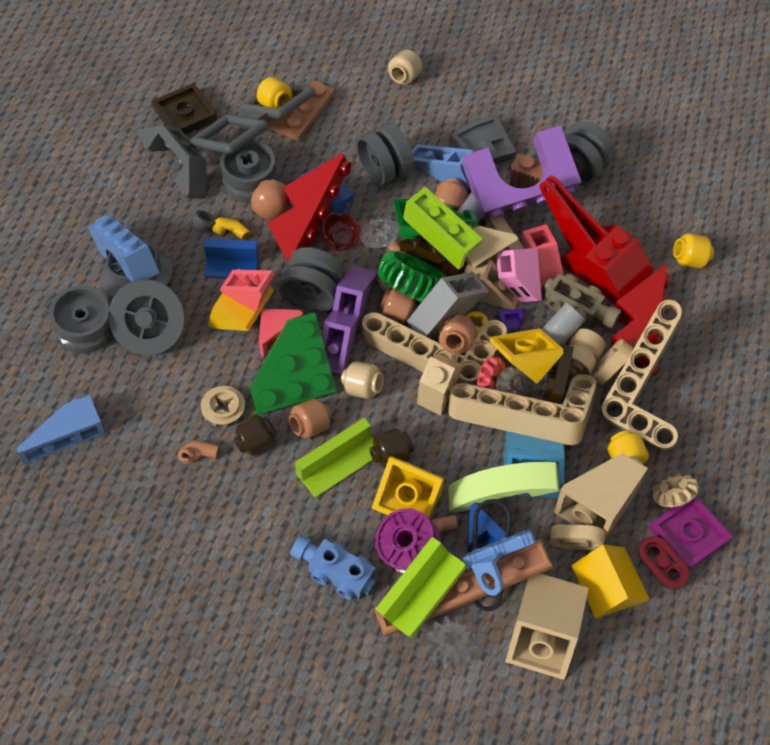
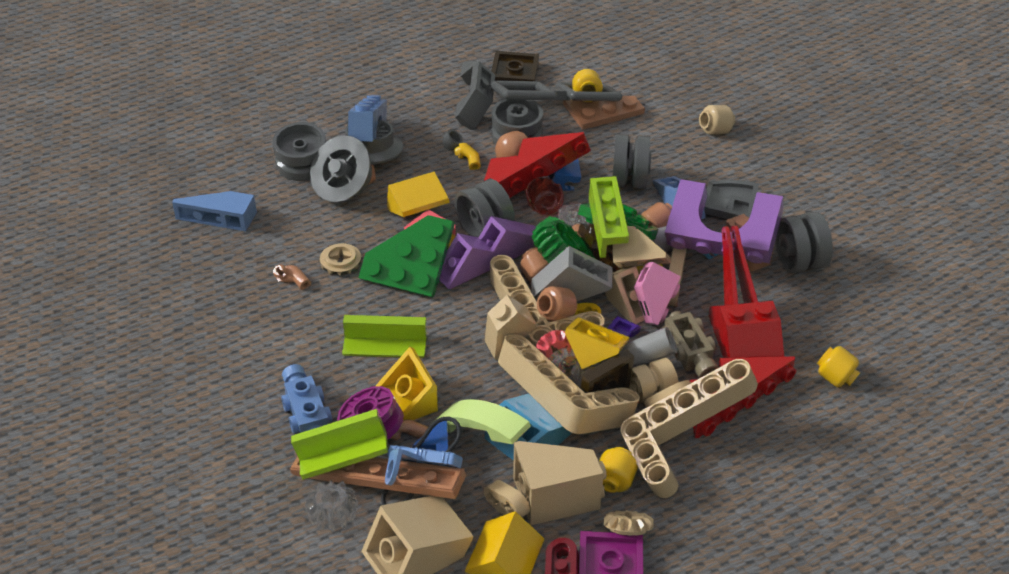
camera: 40 degrees right, 15 degrees down
(229, 255) = (451, 171): blue panel -> none
(248, 286) = (427, 186): coral slope -> none
(255, 435) = (340, 287): dark brown head -> none
(310, 418) = (390, 299): nougat head -> none
(362, 380) = (456, 298): tan head -> none
(391, 443) = (430, 350): dark brown head -> none
(548, 251) = (693, 290): coral slope -> none

